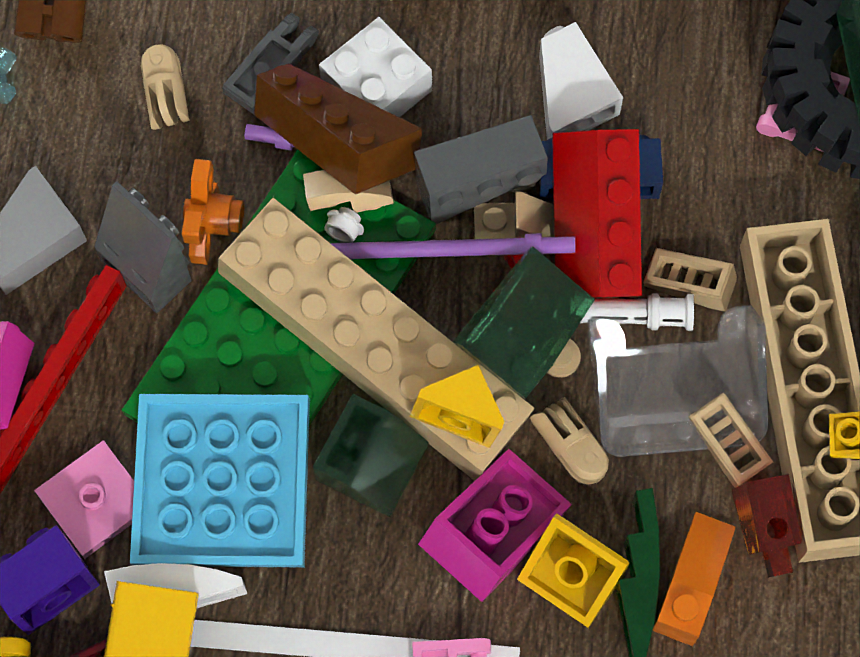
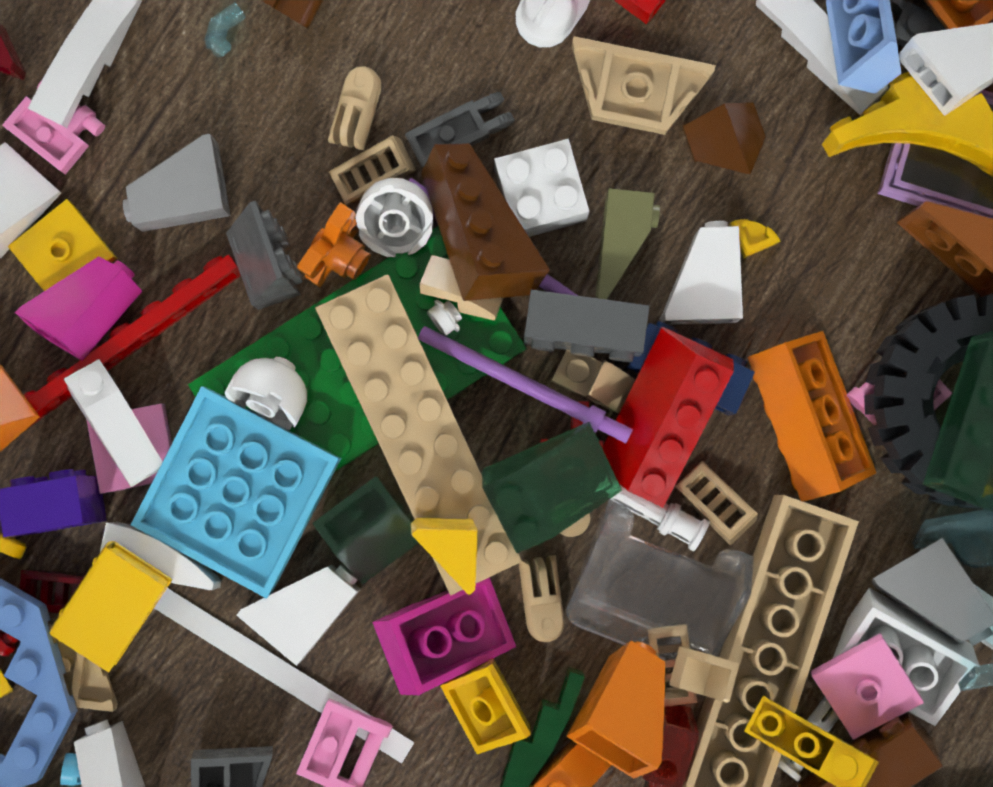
camera: 25 degrees right, 15 degrees up
(65, 470) = (114, 422): none -> white slope
(194, 127) = (366, 158): none -> tan slope
(209, 364) = (270, 390): none -> white cylinder
(251, 159) = (394, 217): none -> white cylinder
(342, 568) = (302, 611): none -> white slope
(471, 74) = (624, 230): none -> olive slope
(598, 31) = (754, 236): none -> yellow tile
(710, 497) = (625, 711): none -> orange slope
(733, 157) = (812, 416): none -> orange slope
(763, 422) = (704, 674): none -> tan panel

